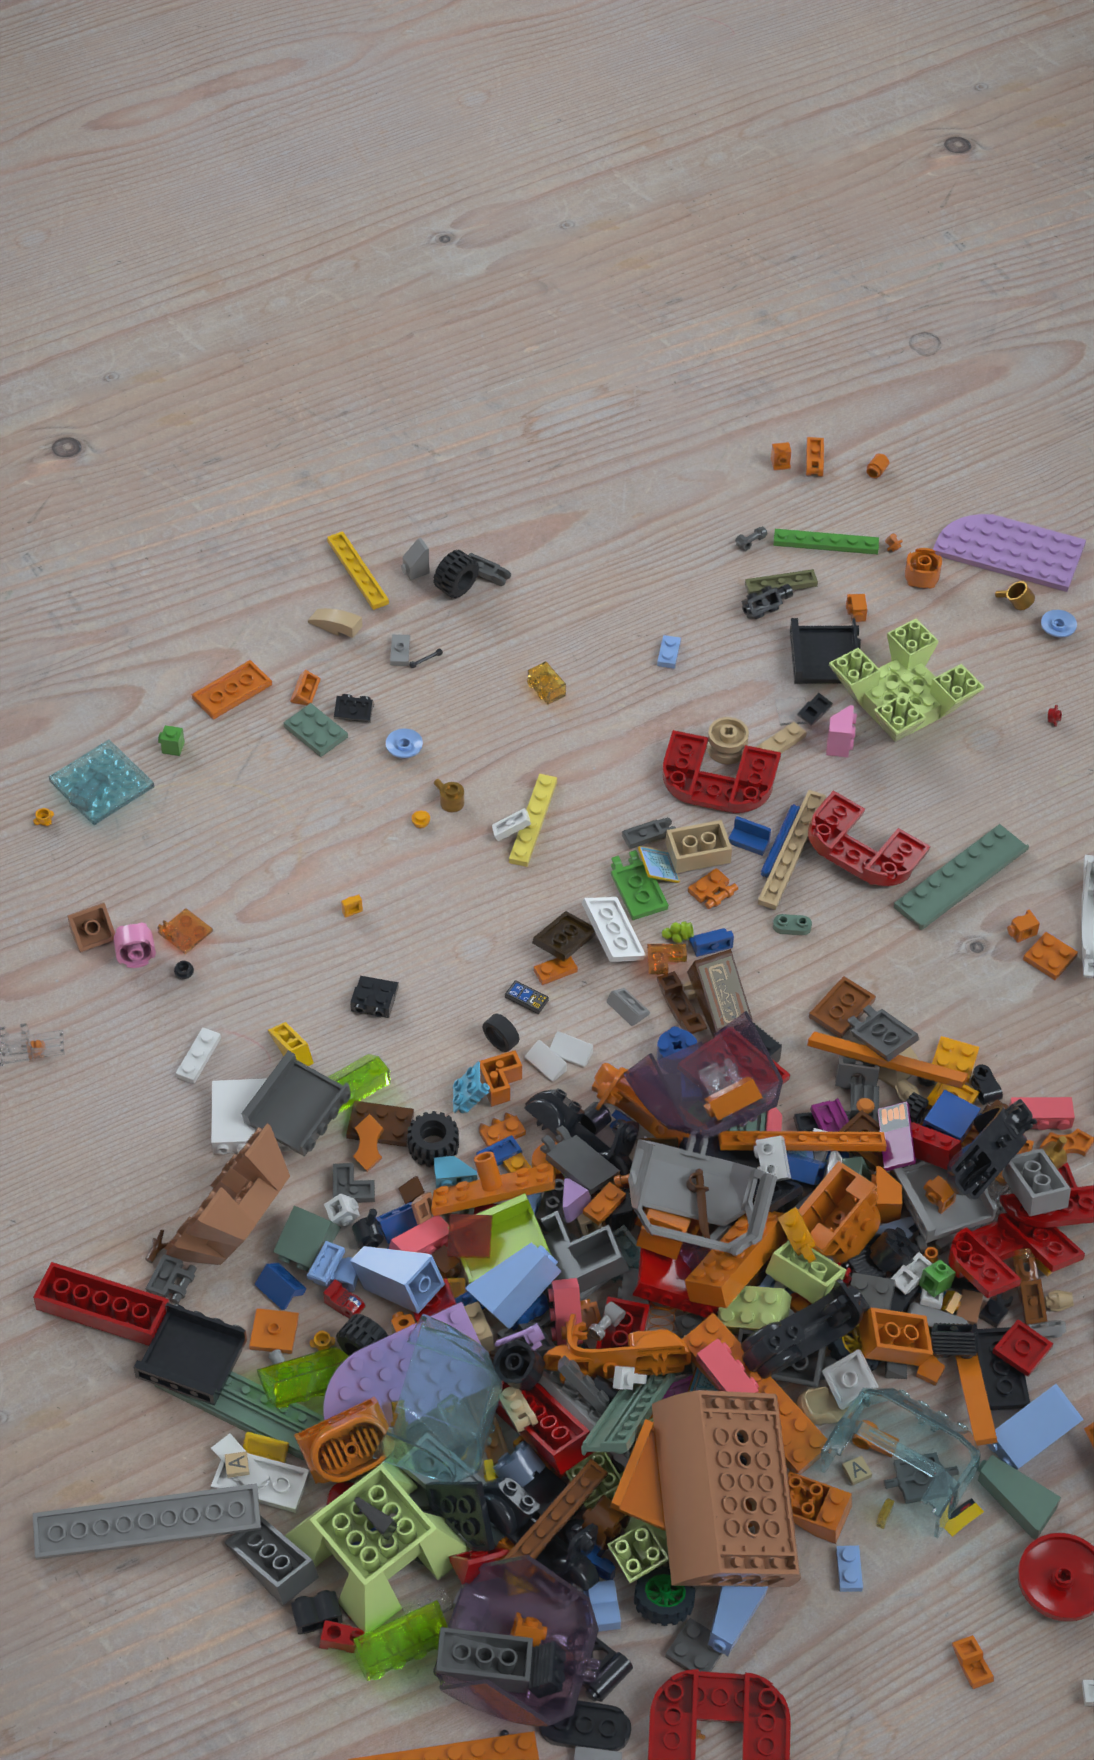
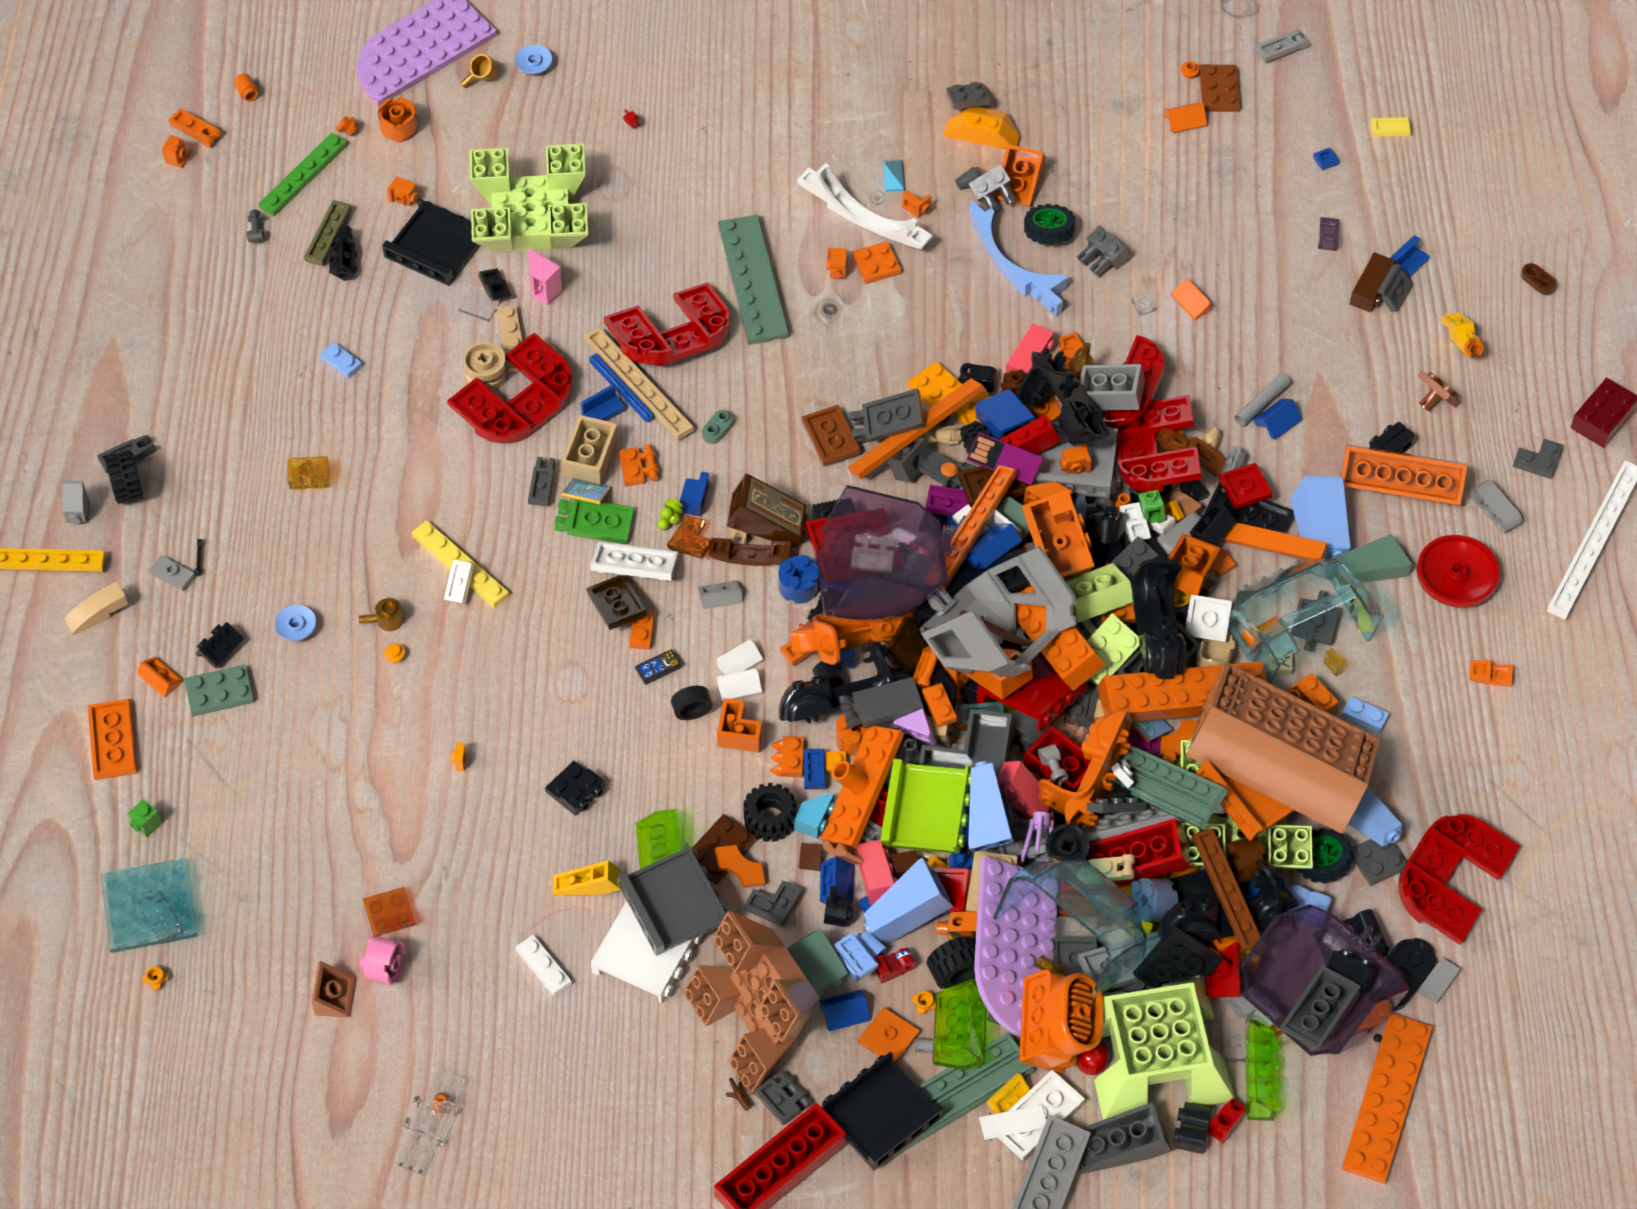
camera: 60 degrees left, 5 degrees up
(184, 966) = (435, 928): black plate -> none
(237, 1464) = (1017, 1123): tan tile -> none
(342, 1210) = (804, 927): white brick -> none
(383, 1523) = (1166, 1021): black slope -> none
(468, 1090) = (735, 757): medium azure hinge -> none
(469, 1236) = (904, 825): clear red plate -> none
(529, 1628) = (1303, 970): orange brick -> none
(724, 1370) = (1169, 695): coral brick -> none
(732, 1098) = (909, 549): orange brick -> none
(773, 1157) = (984, 551): white brick -> none
(798, 1234) = (1076, 575): light orange hinge -> none

